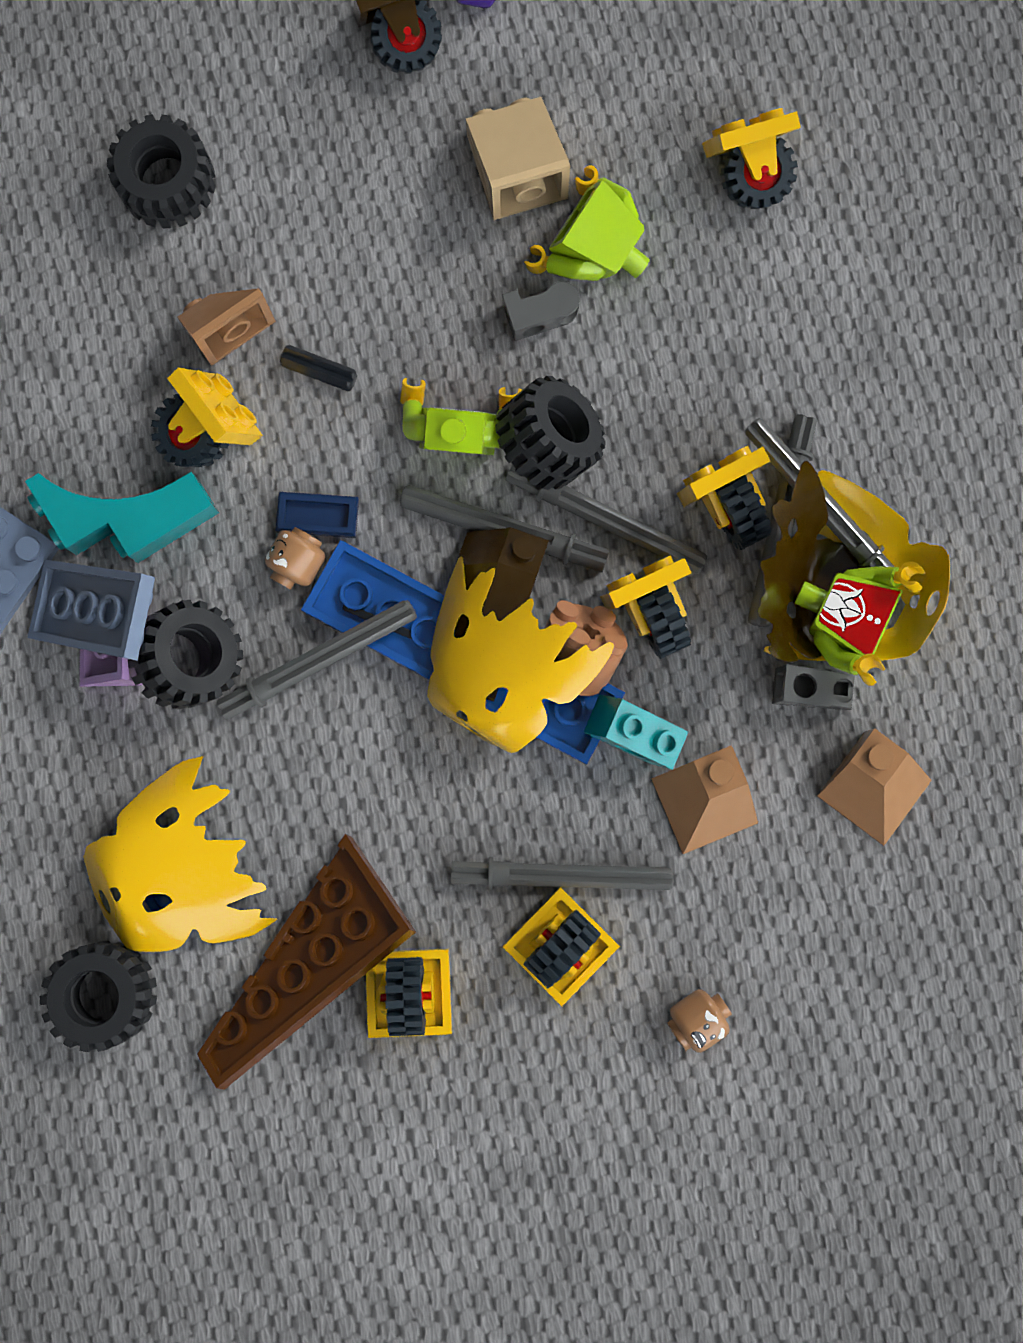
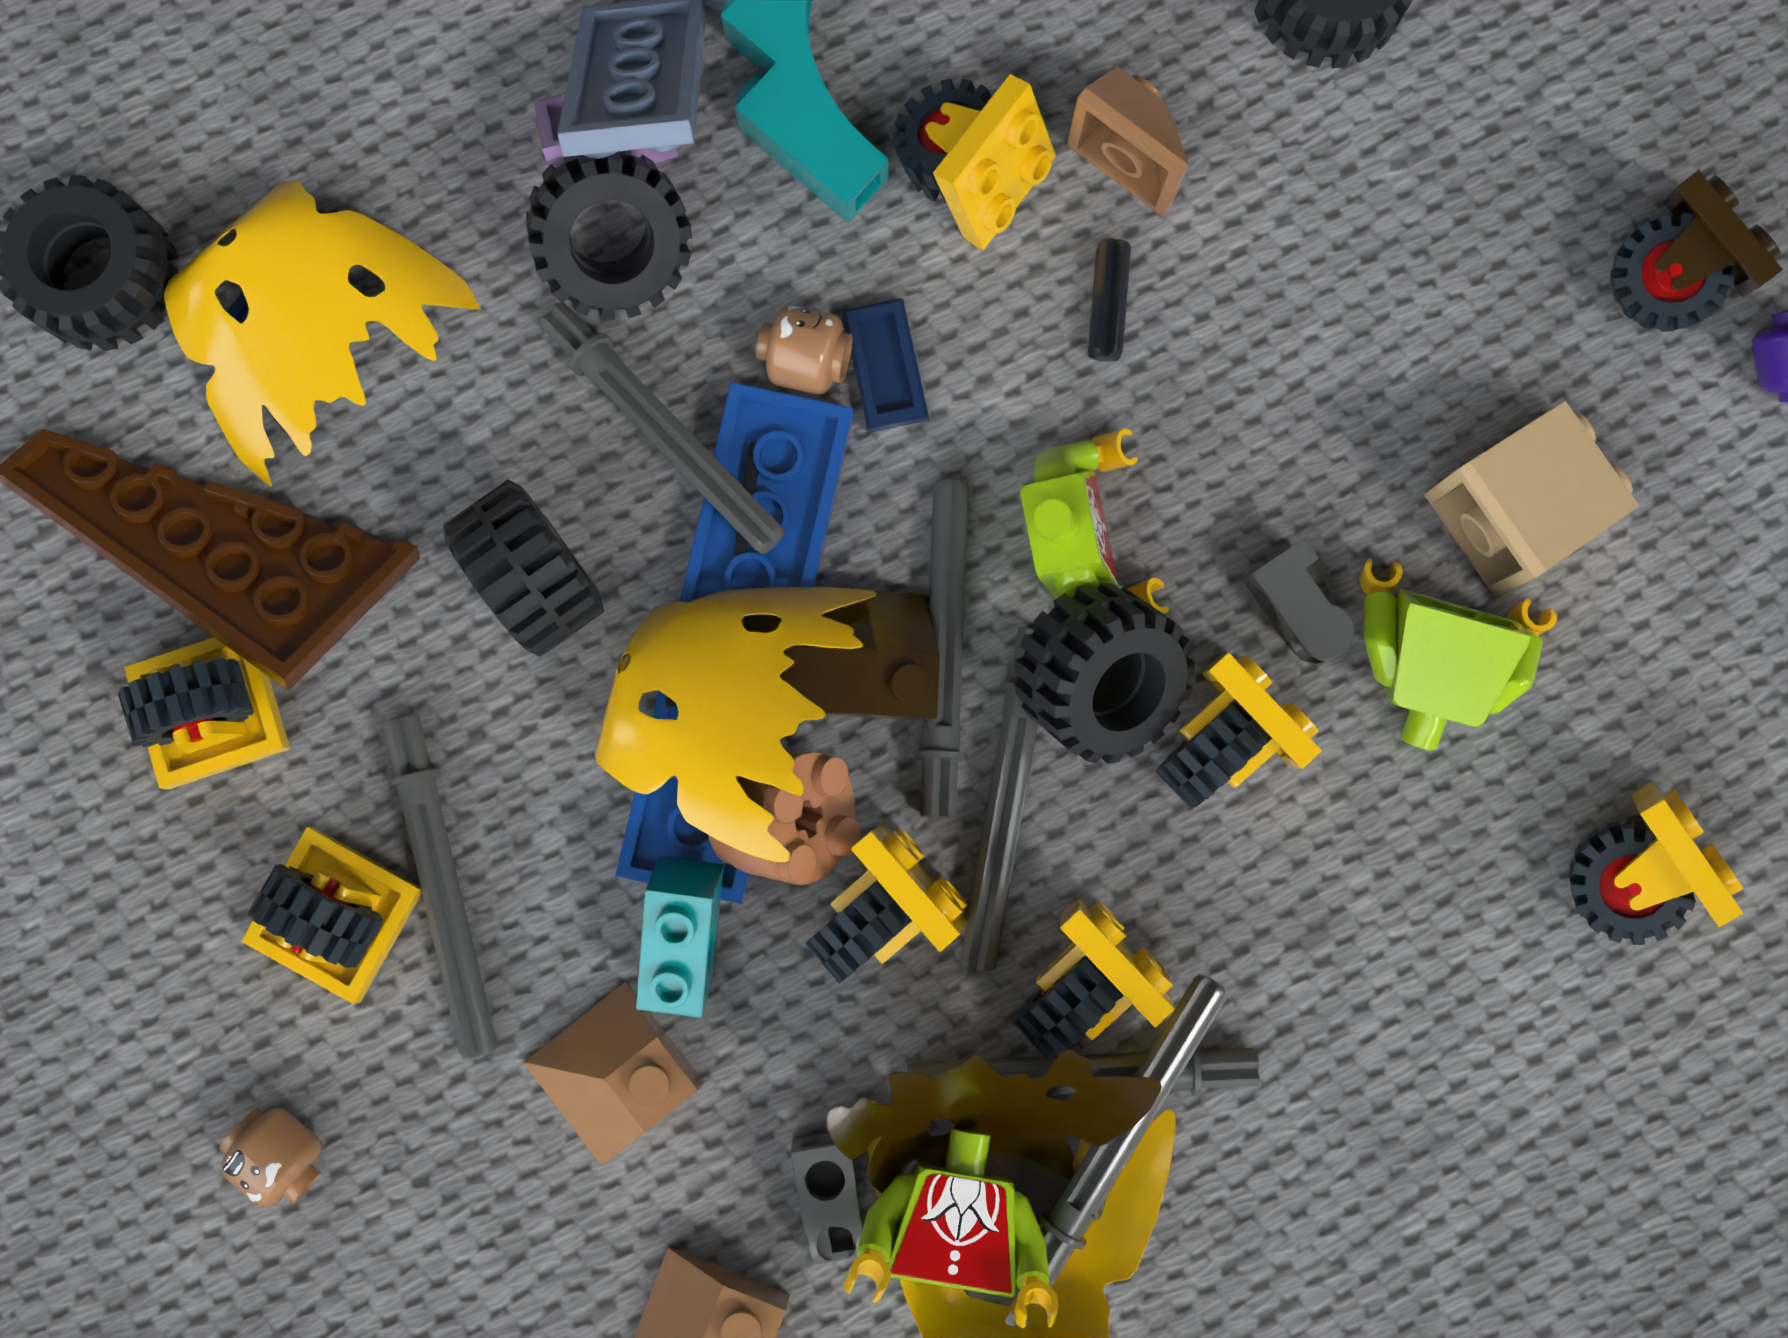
camera: 70 degrees right, 0 degrees up
(382, 763) = (522, 568): none -> black tyre
(607, 368) = (1236, 733): none -> plate

